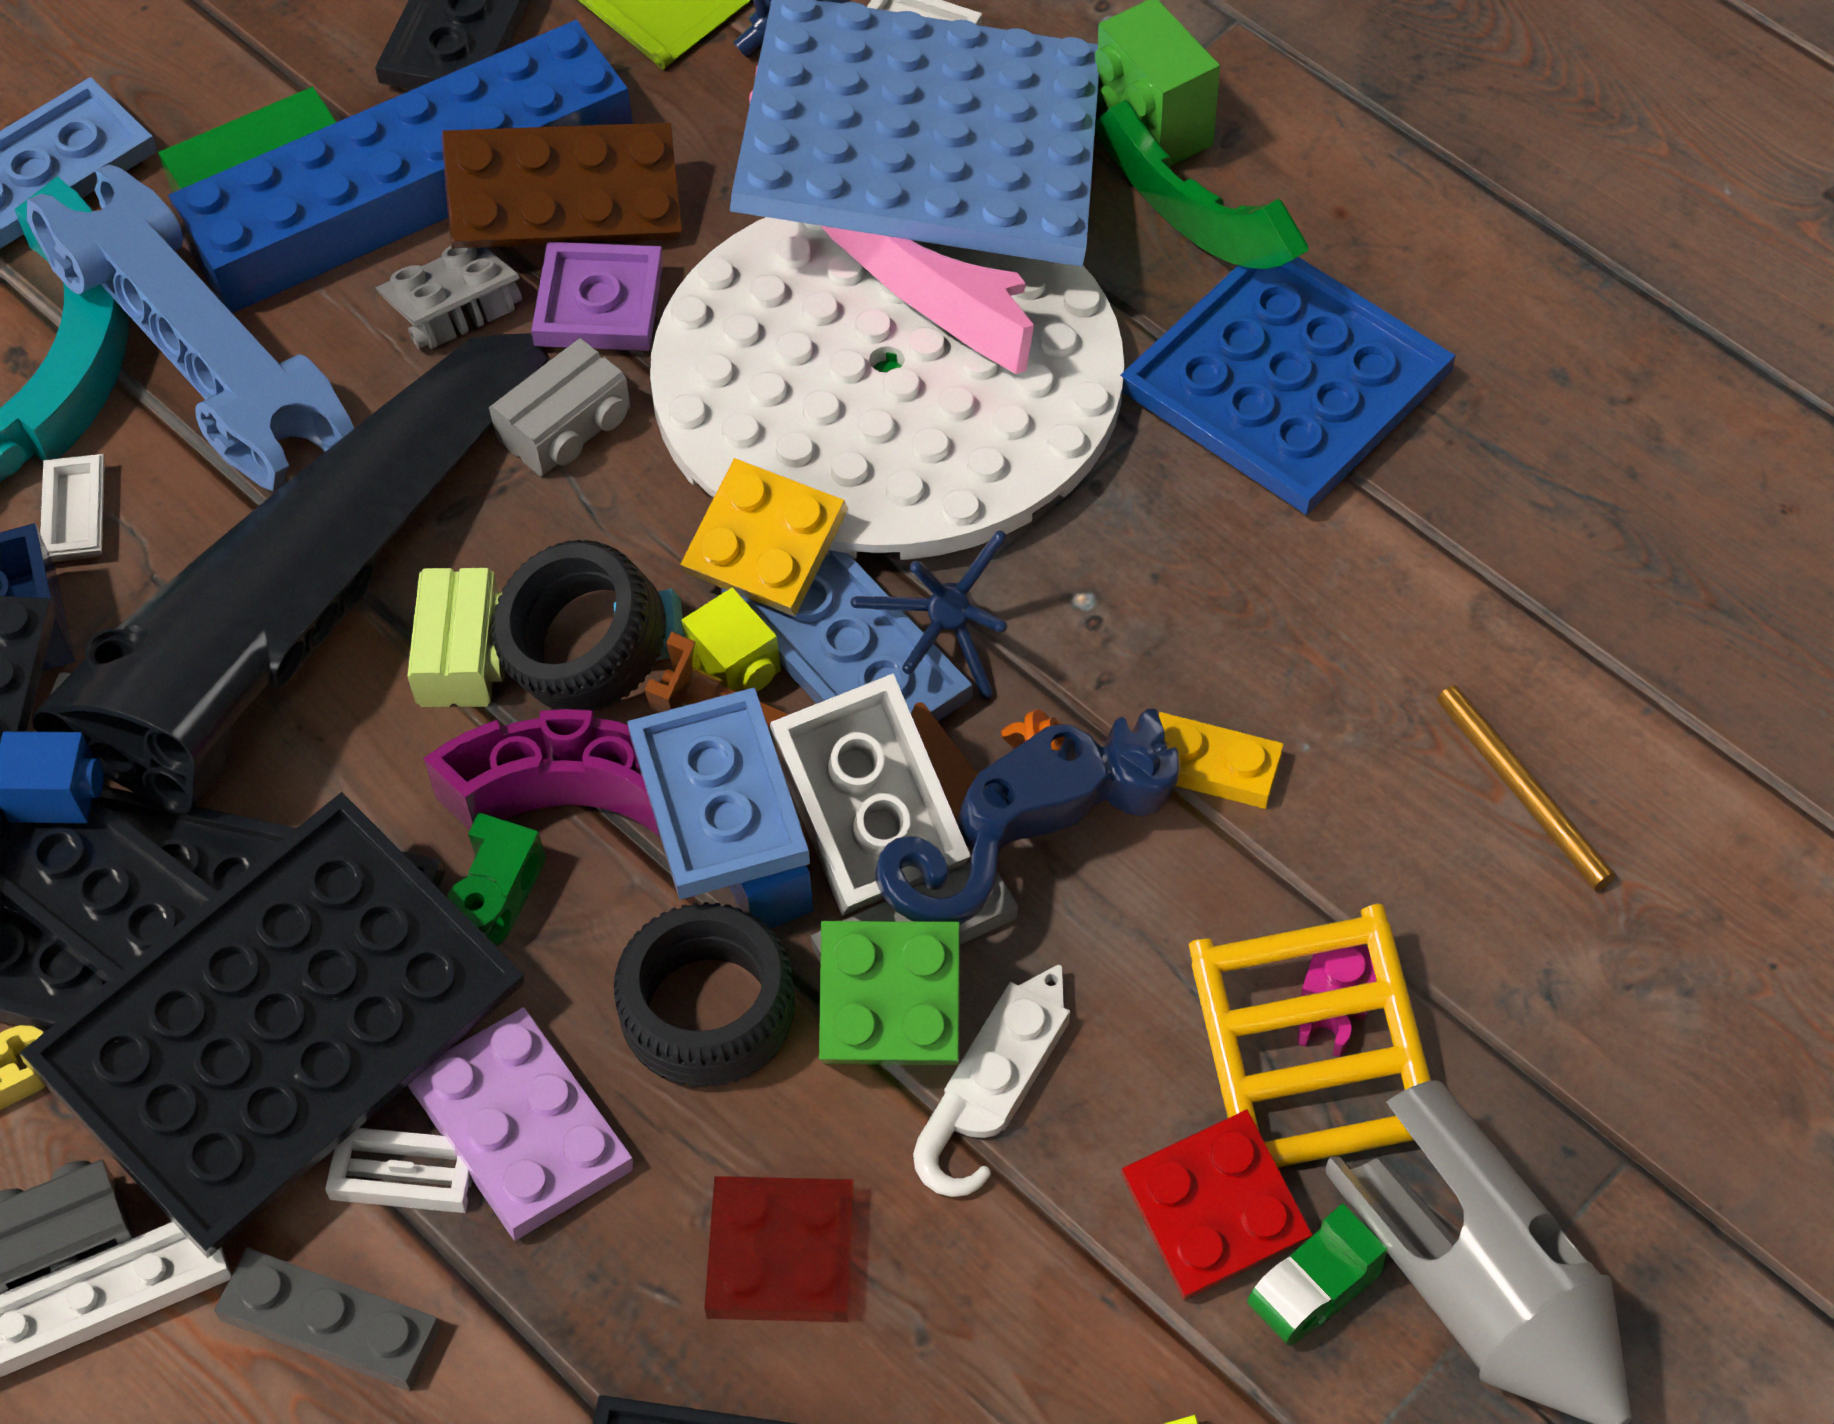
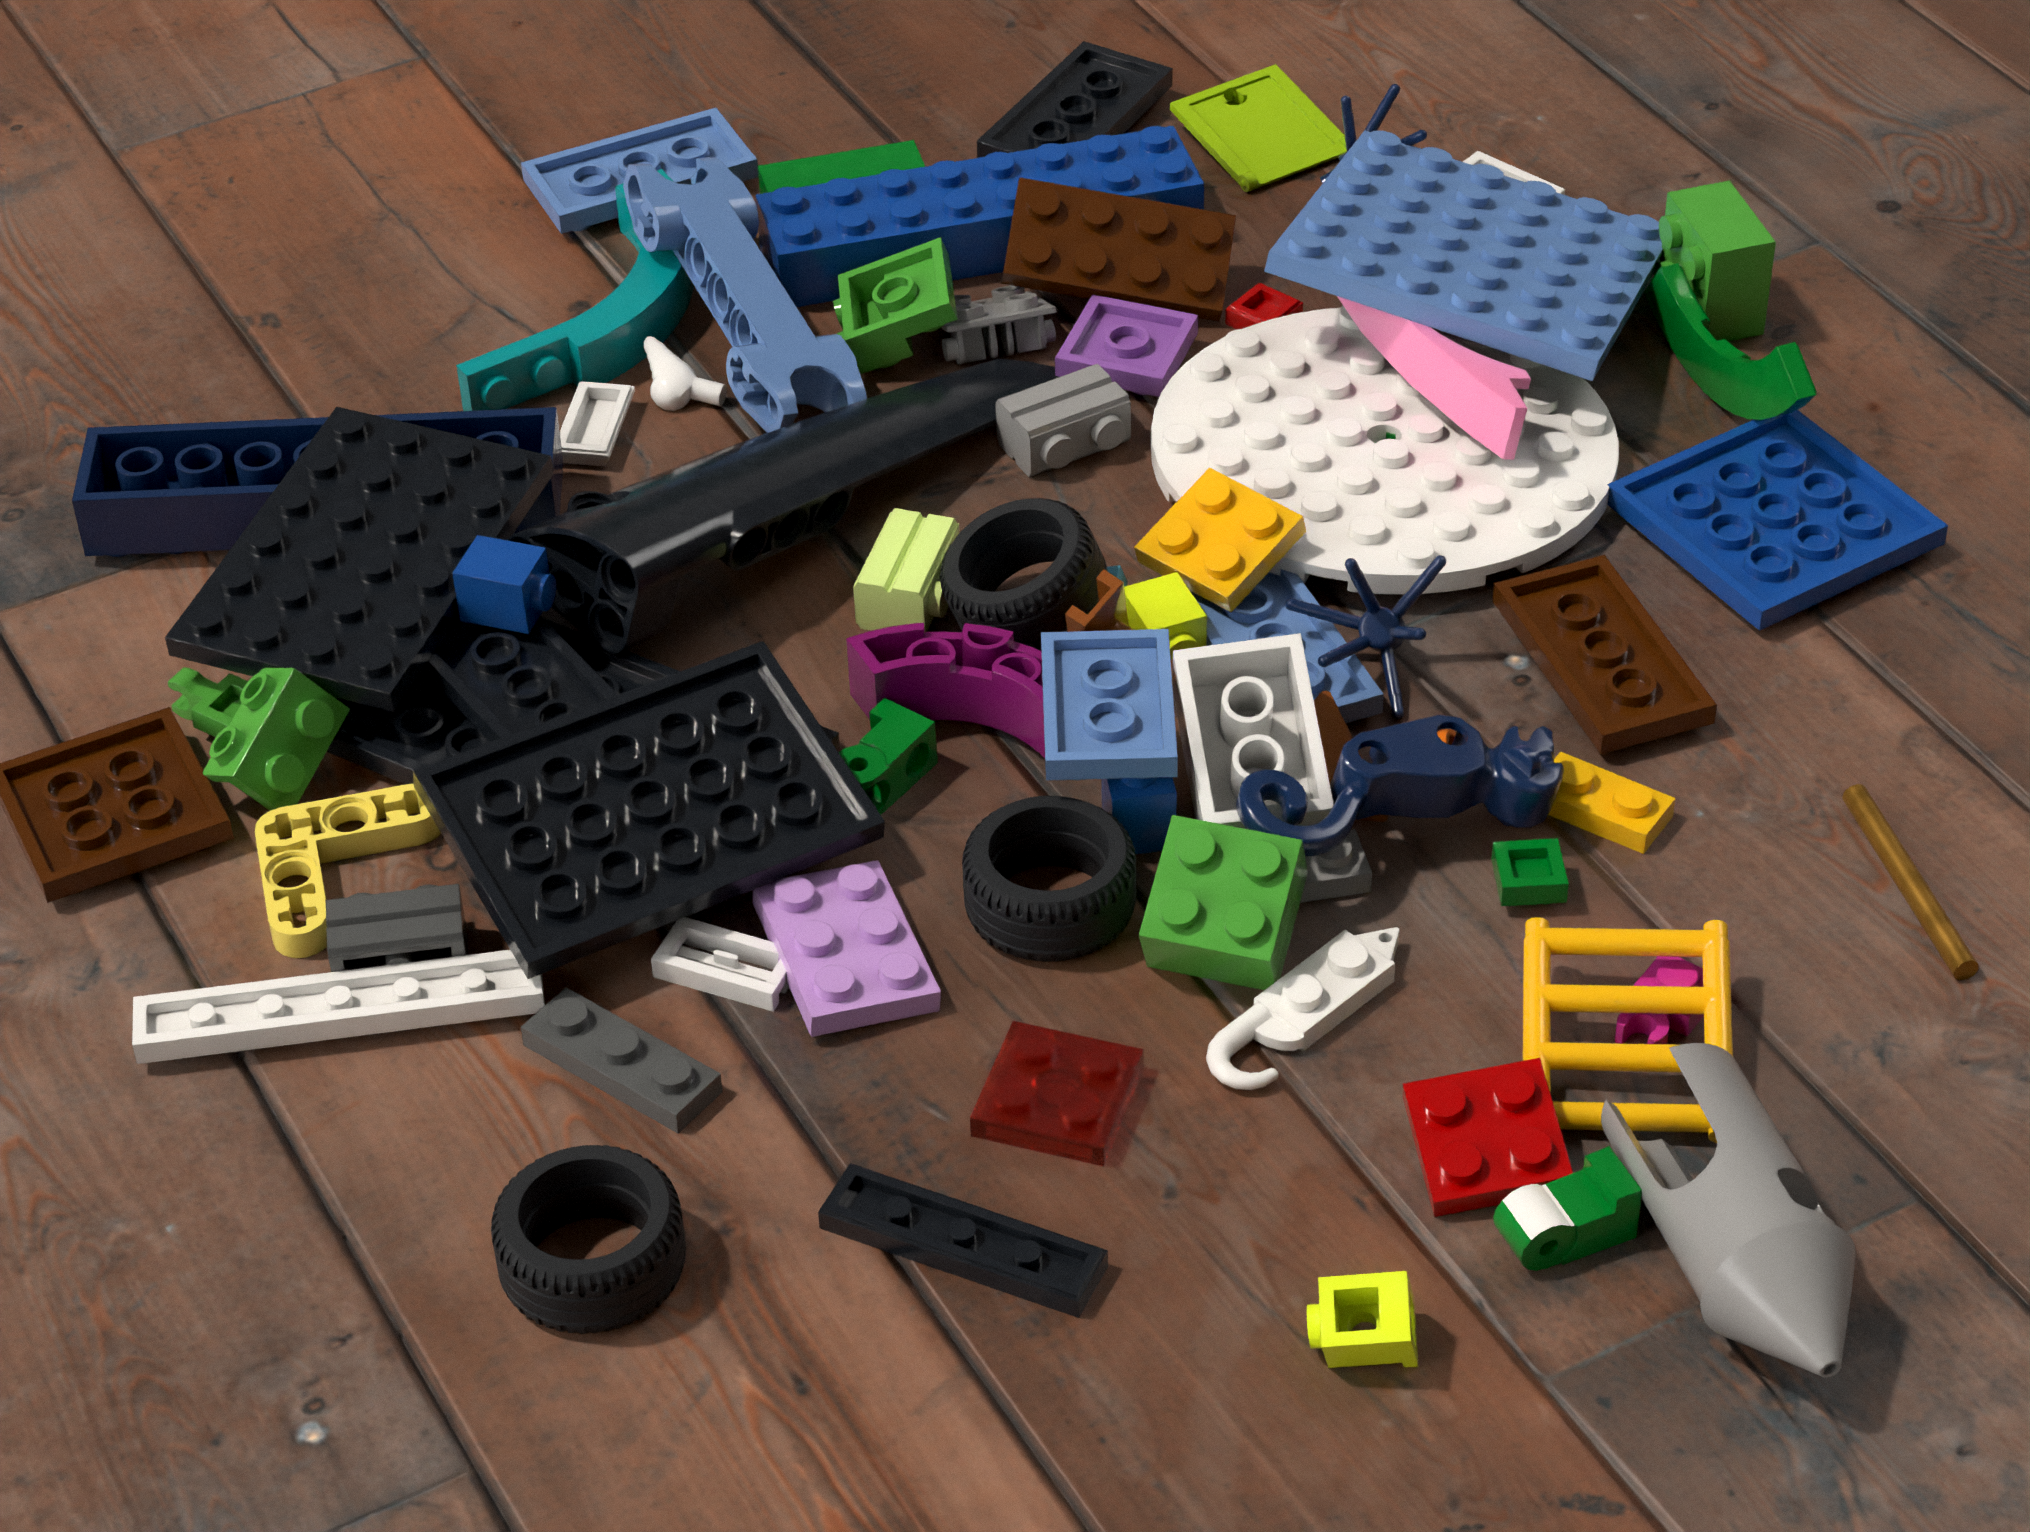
camera: 15 degrees right, 15 degrees down
(145, 436) = (676, 381): none -> white animal
(350, 300) = (893, 301): none -> bright green plate
(713, 220) = (1260, 305): none -> red tile
(1169, 581) = (1604, 654): none -> reddish brown plate
(1169, 867) = (1529, 872): none -> green plate

